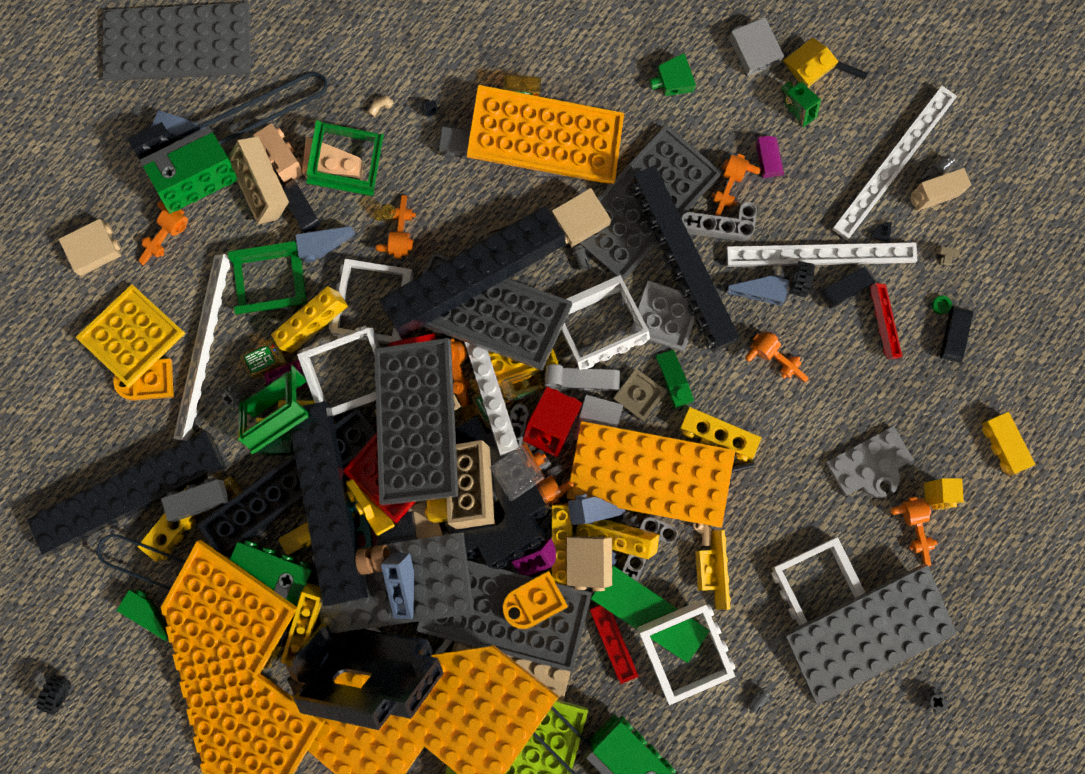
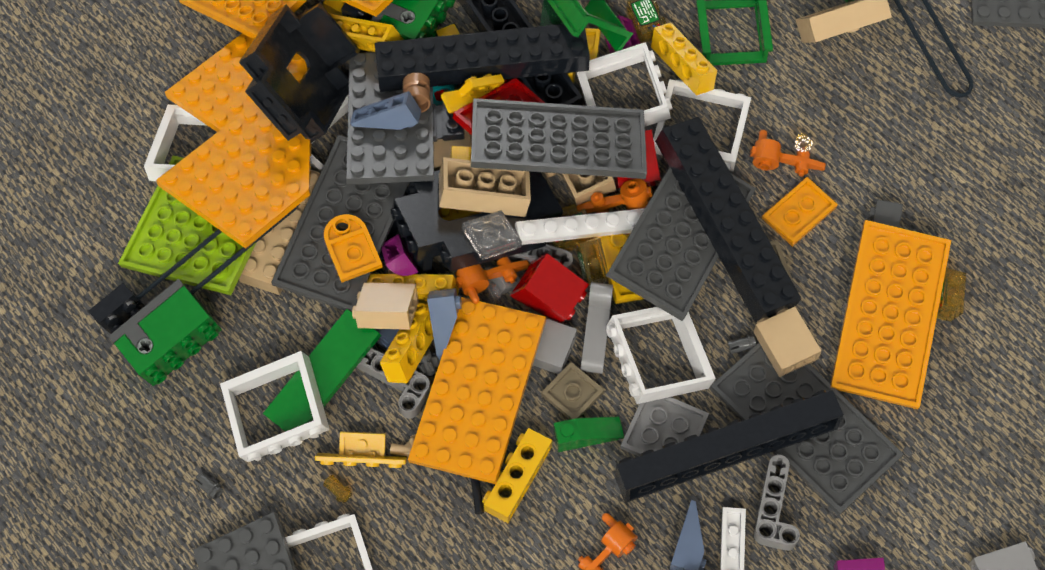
camera: 95 degrees right, 15 degrees down
(280, 153) = (875, 43): light nougat wedge -> none
(300, 207) = (815, 61): black beam -> none
(319, 243) = (771, 78): sand blue slope -> none
(334, 161) = (863, 90): light nougat wedge -> none
(338, 182) = (876, 72): green piece -> none
(378, 103) = (934, 146): tan arm -> none
(429, 108) = (928, 197): black plate -> none
(449, 215) = (799, 211): none -> light orange tile
(614, 644) = (292, 338): red plate -> none
(674, 77) = (966, 470): green torso -> none
(734, 170) = (843, 530): orange piece -> none
(748, 586) = (338, 489): none -> clear yellow pin

